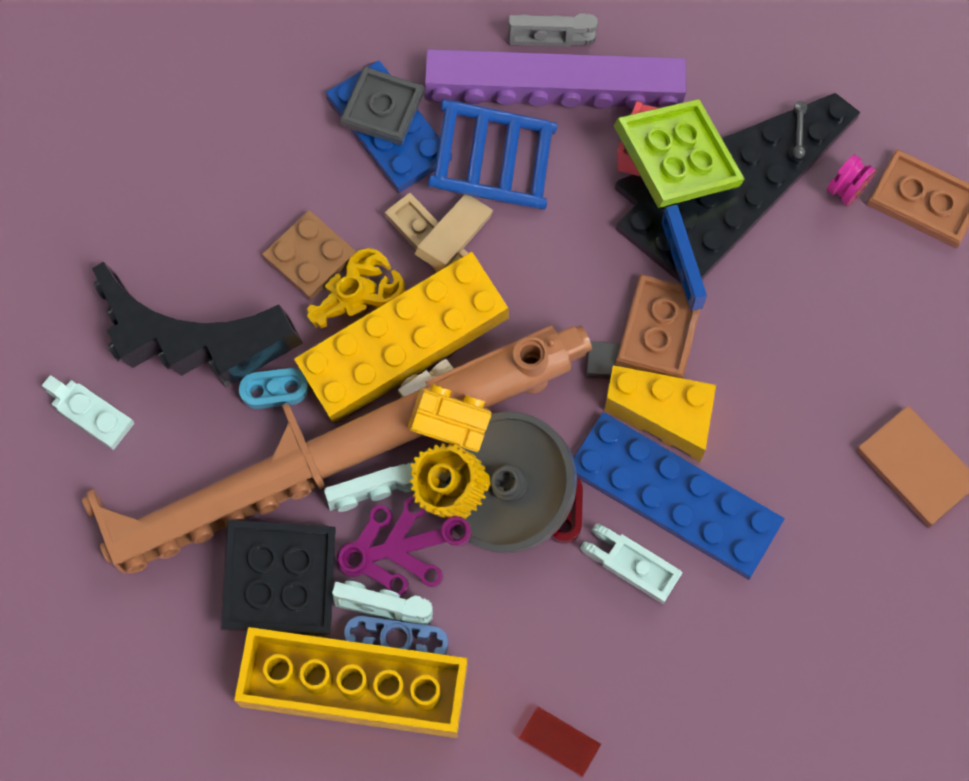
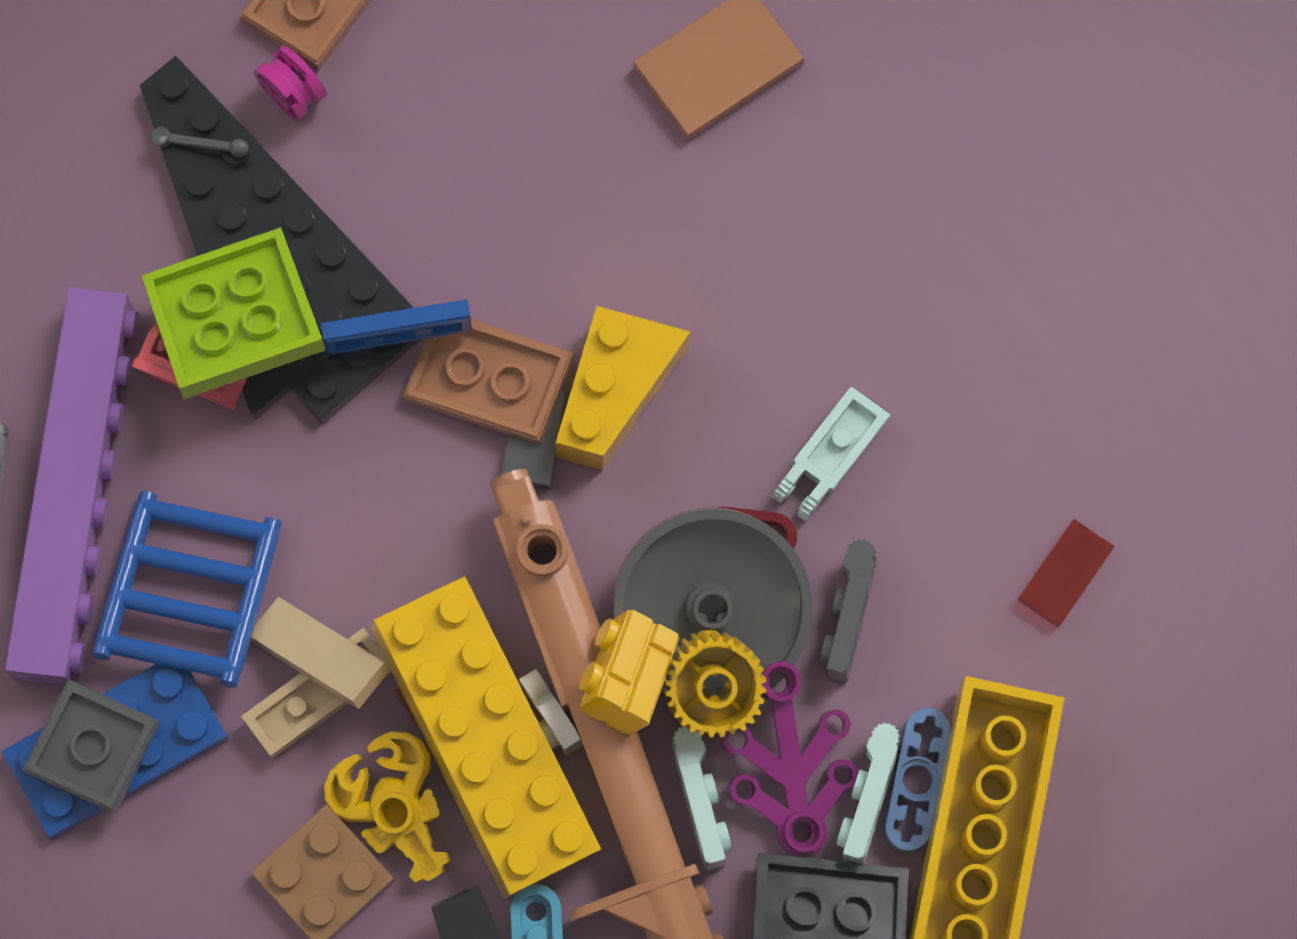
camera: 90 degrees left, 5 degrees up
(515, 582) = (850, 608): none -> dark grey hinge
(676, 495) = (736, 385): blue plate -> none

